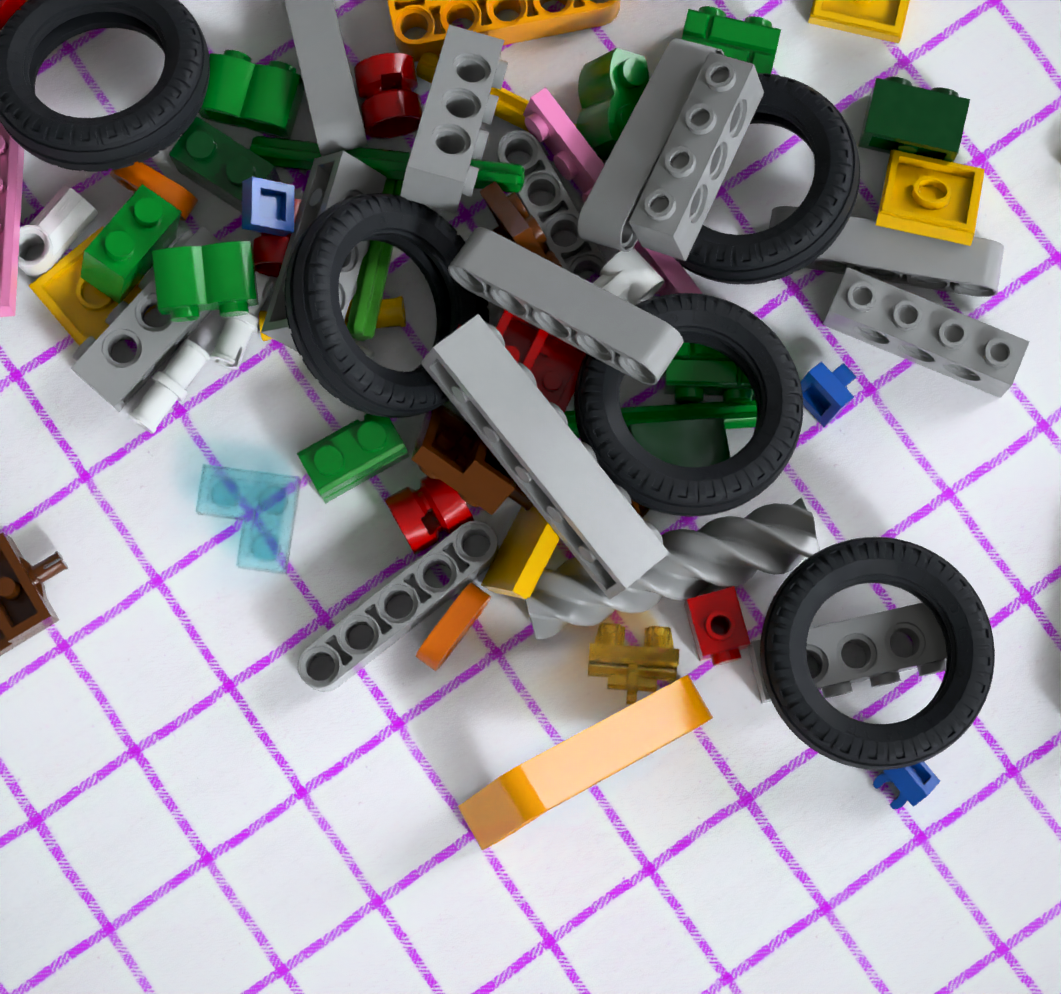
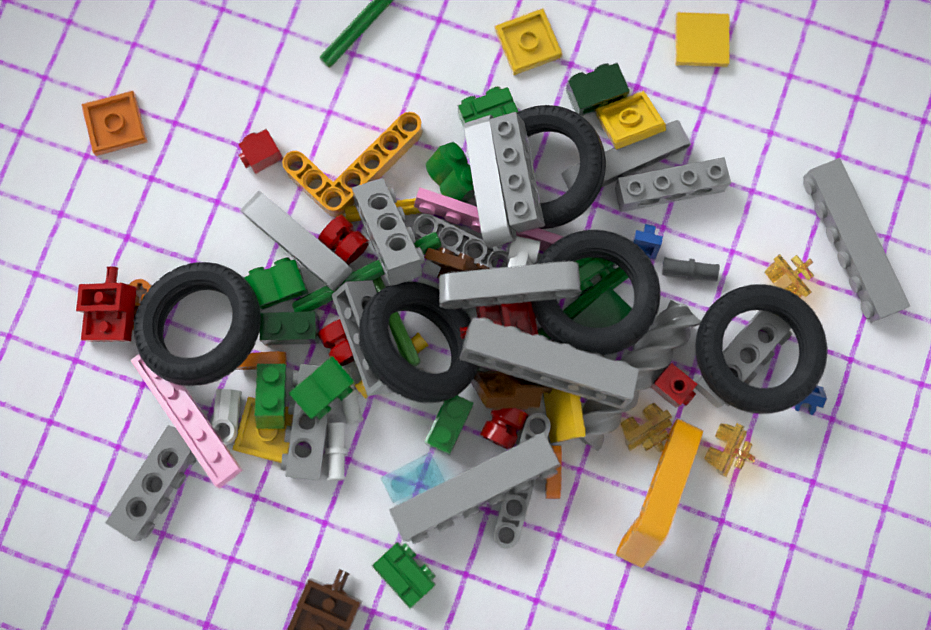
camera: 40 degrees left, 0 degrees up
(142, 622) = (404, 574): none -> green brick
(268, 206) = (328, 333): blue tile -> none
(321, 567) = (475, 488): none -> light grey brick
(736, 779) = (733, 437): none -> clear yellow hips
(864, 475) = (690, 269): none -> dark grey pin
(1004, 563) = (781, 267): none -> clear yellow hips

